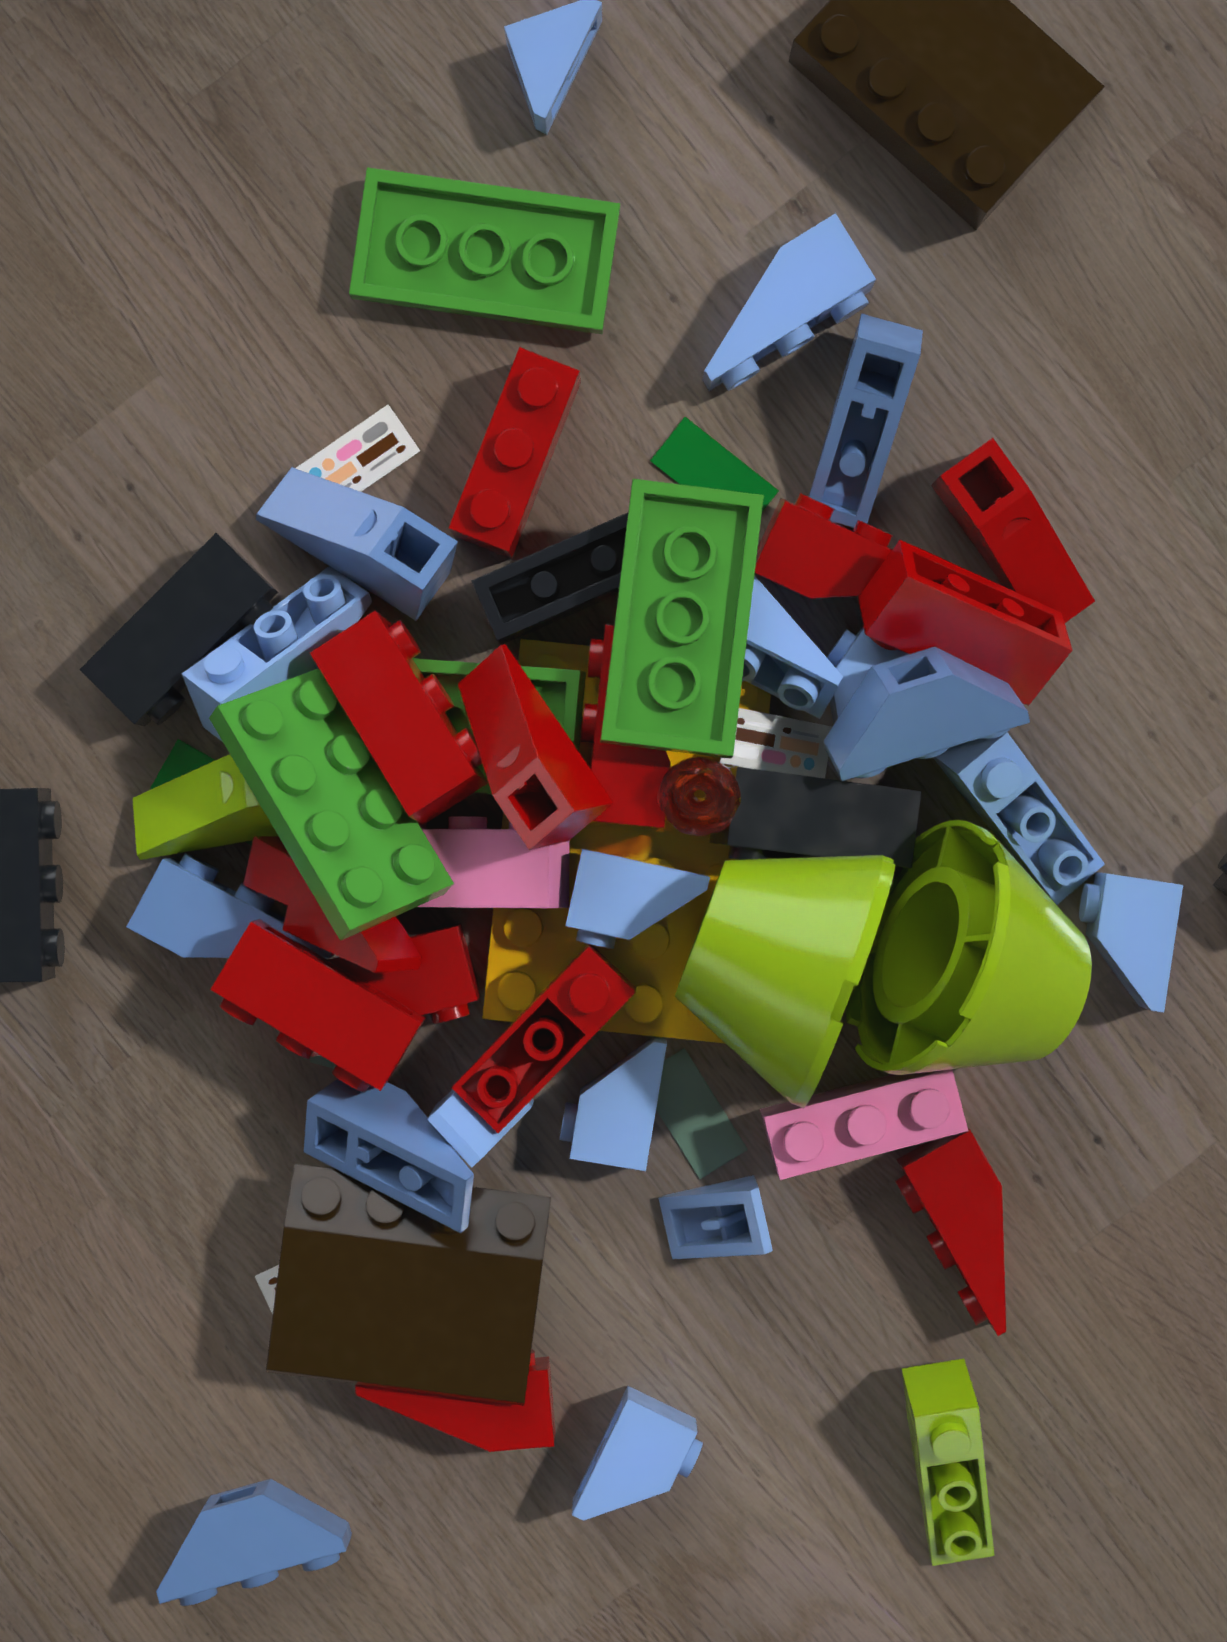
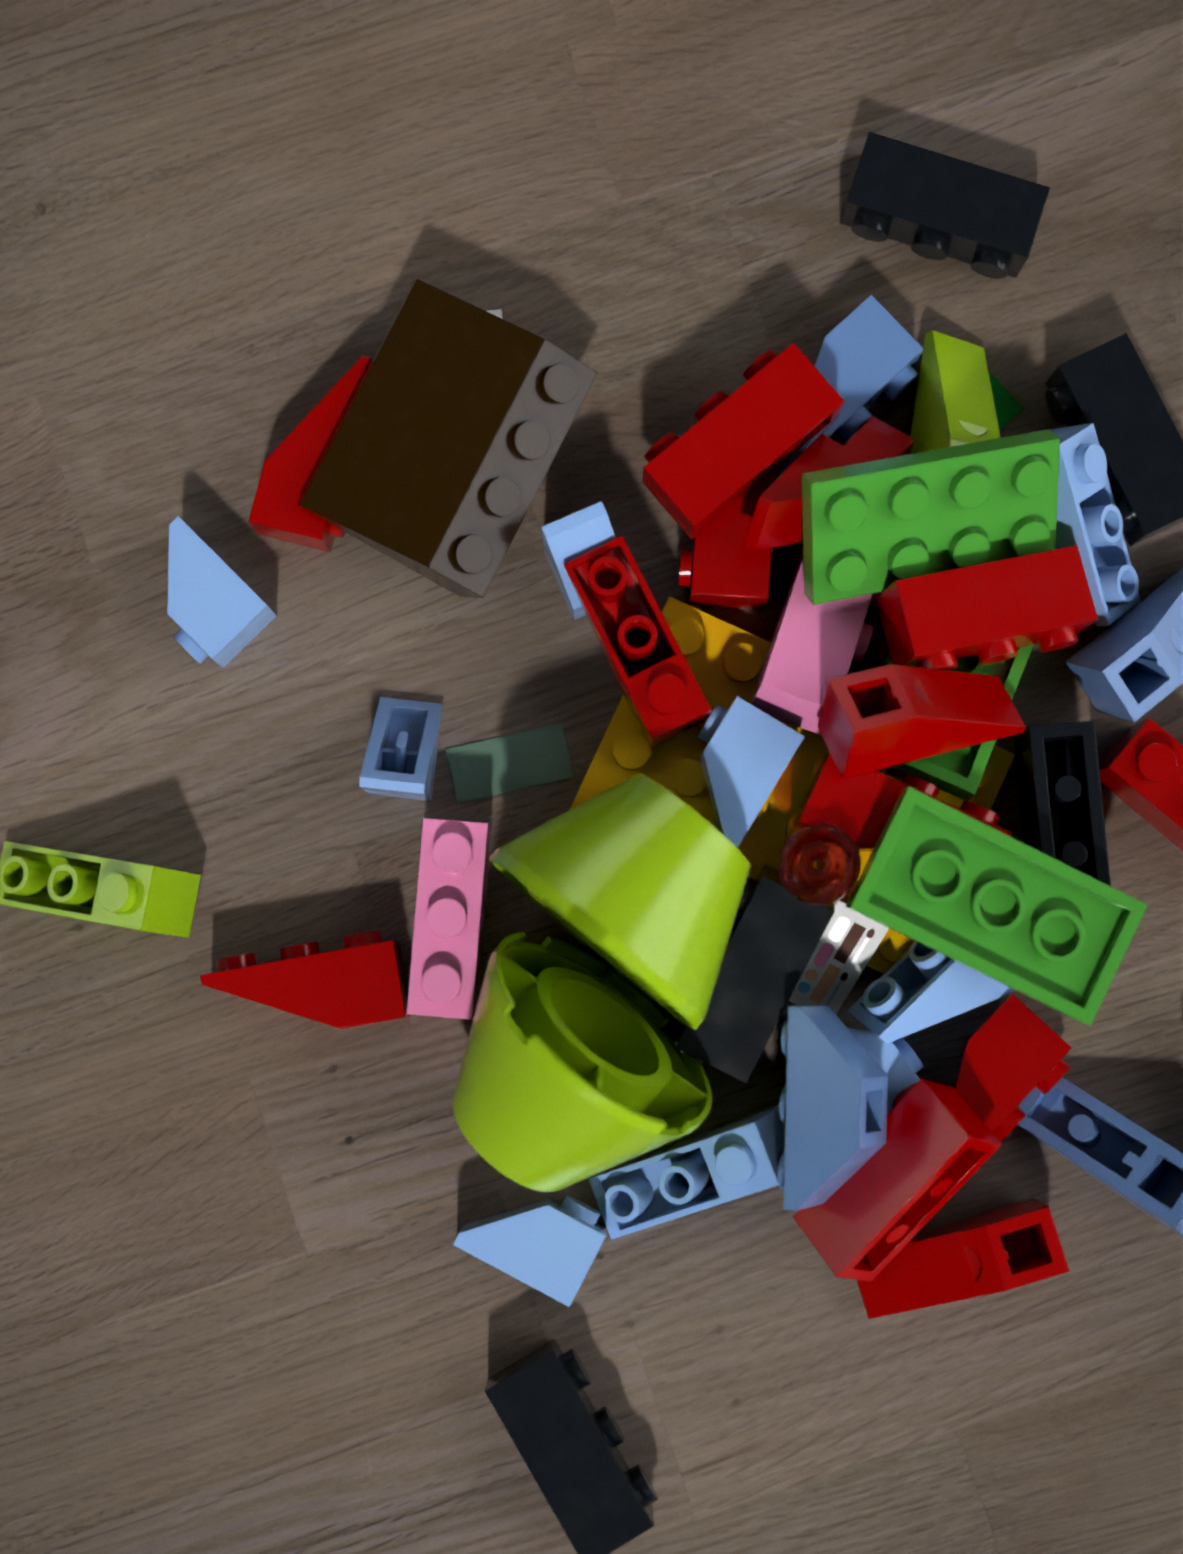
camera: 115 degrees right, 5 degrees down
(249, 1538) = (263, 220): medium blue slope -> none
(390, 1147) = (584, 461): medium blue slope -> none
(617, 1110) = (538, 691): light blue slope -> none
(700, 461) = (1134, 984): green sticker -> none

